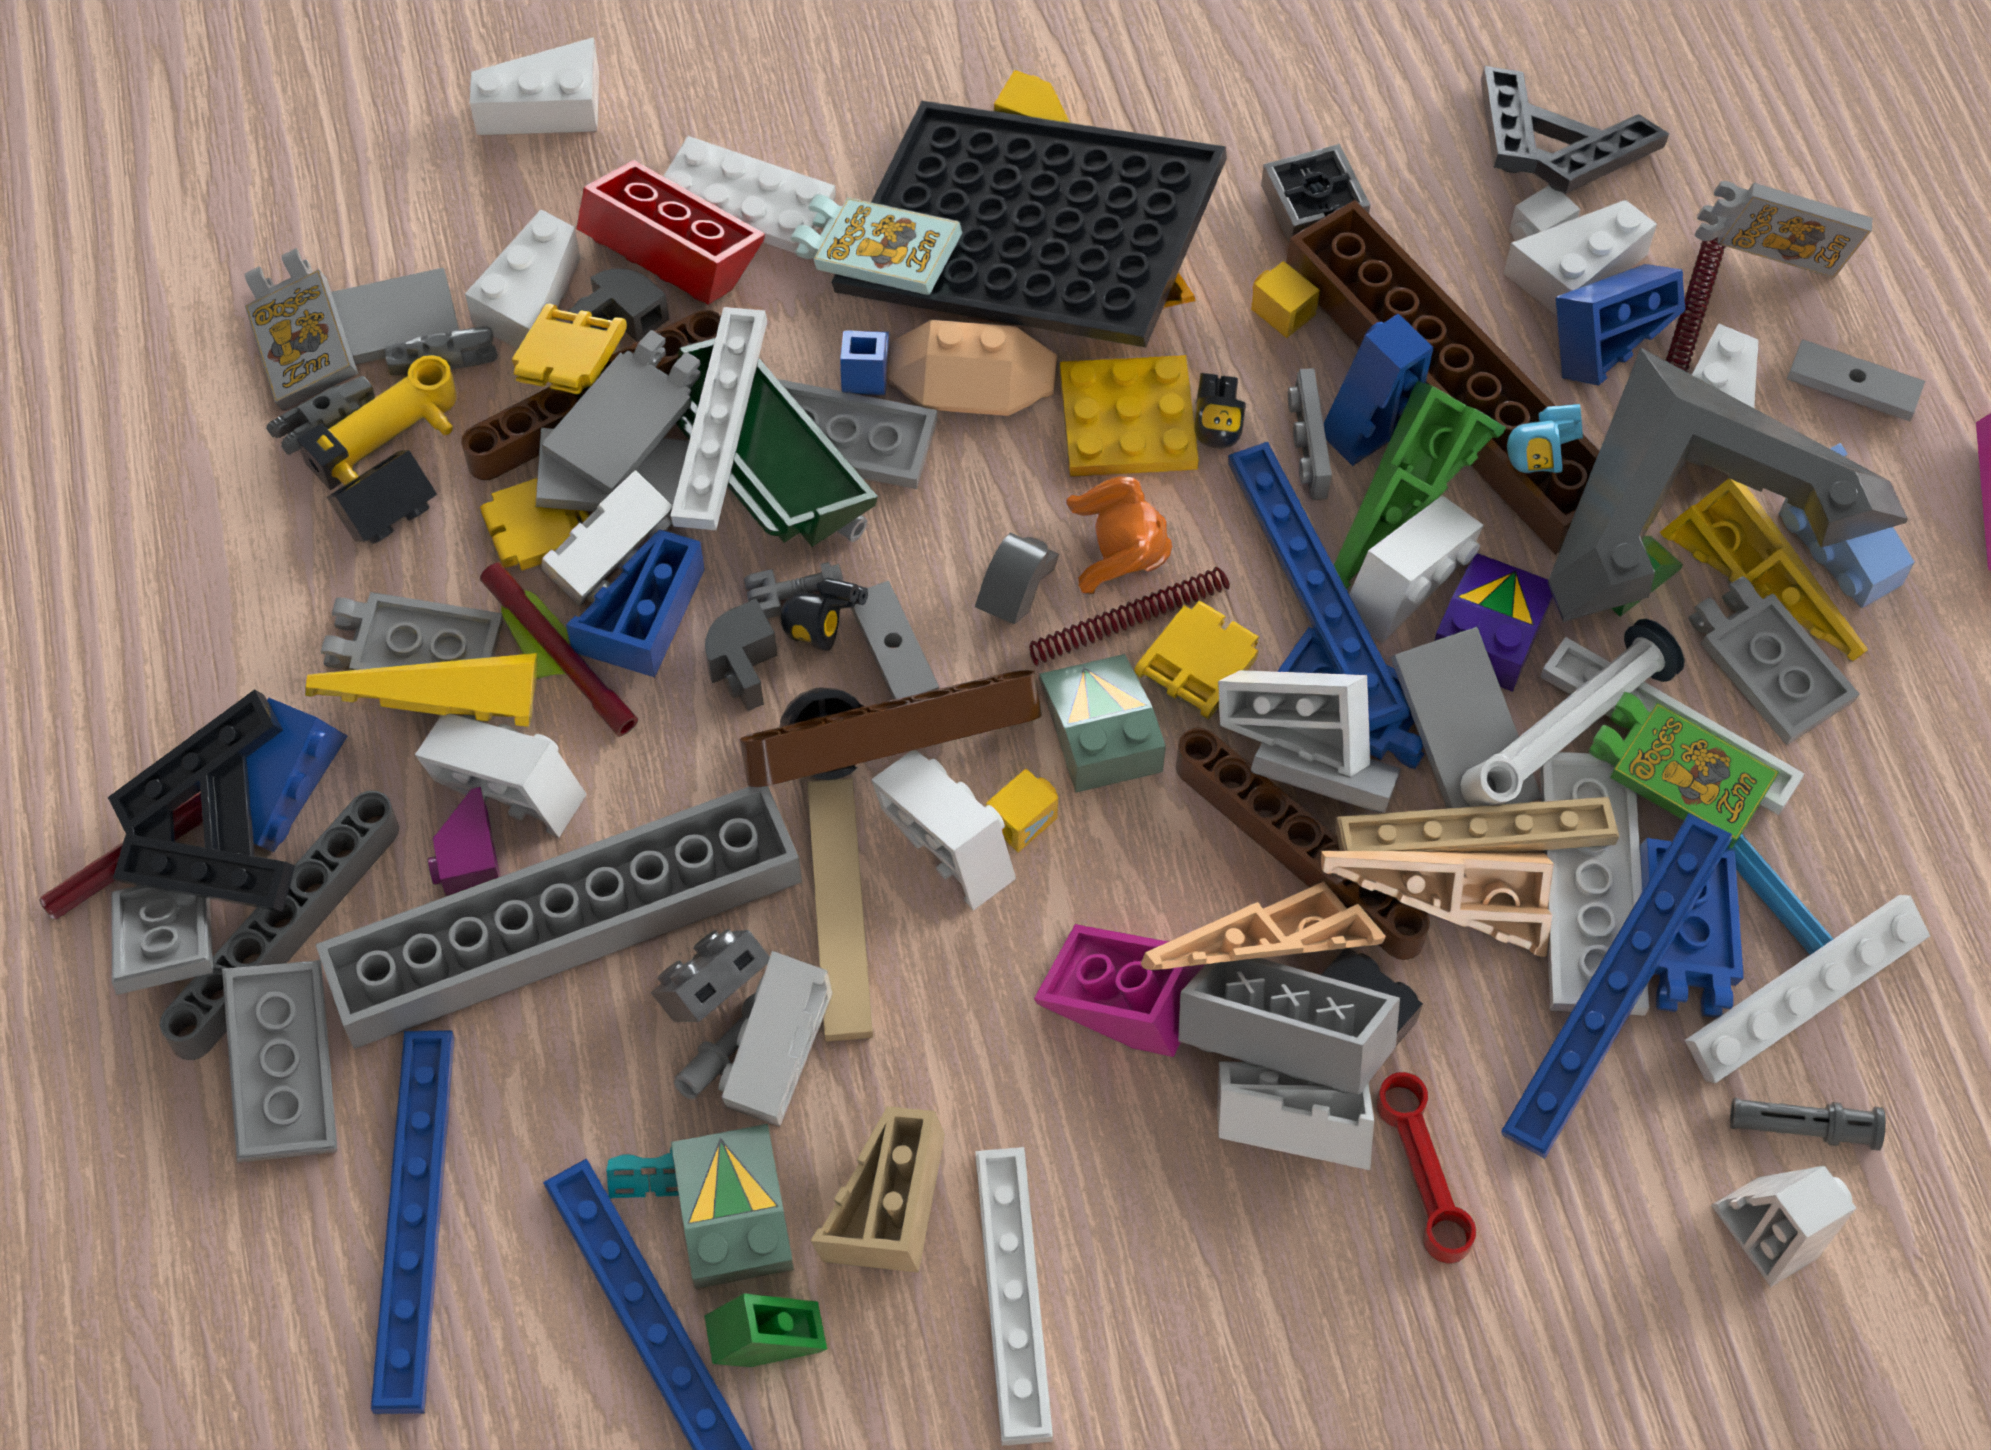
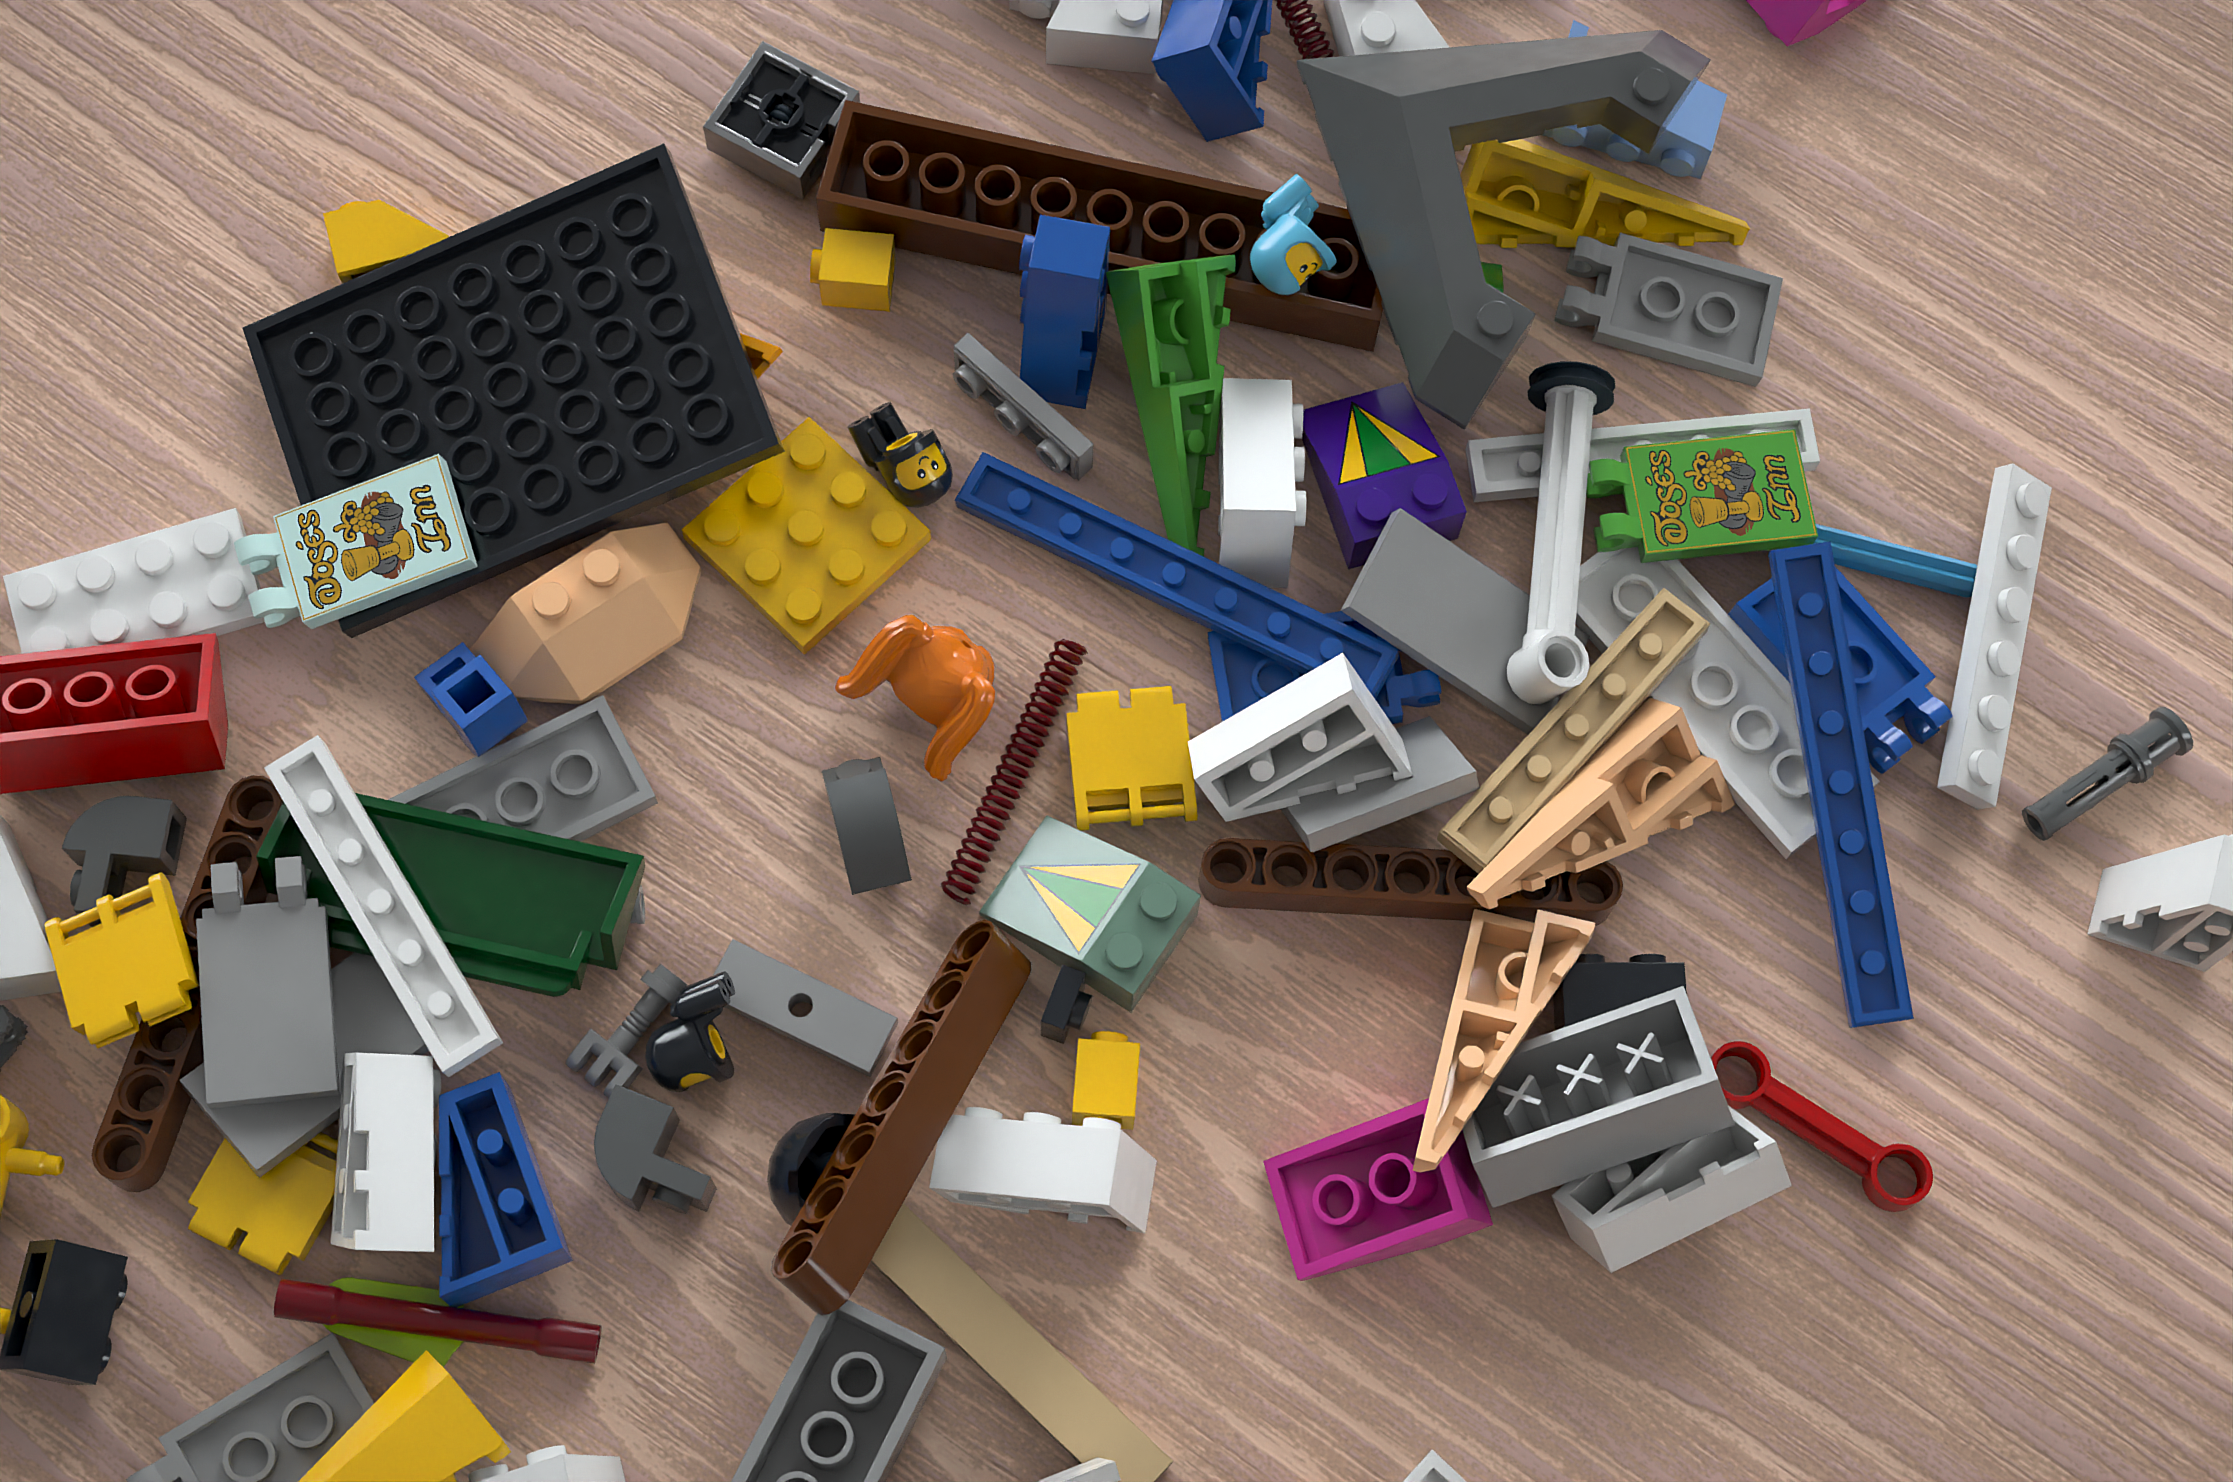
camera: 45 degrees left, 10 degrees up
(1038, 751) = (1066, 1005): none -> black plate

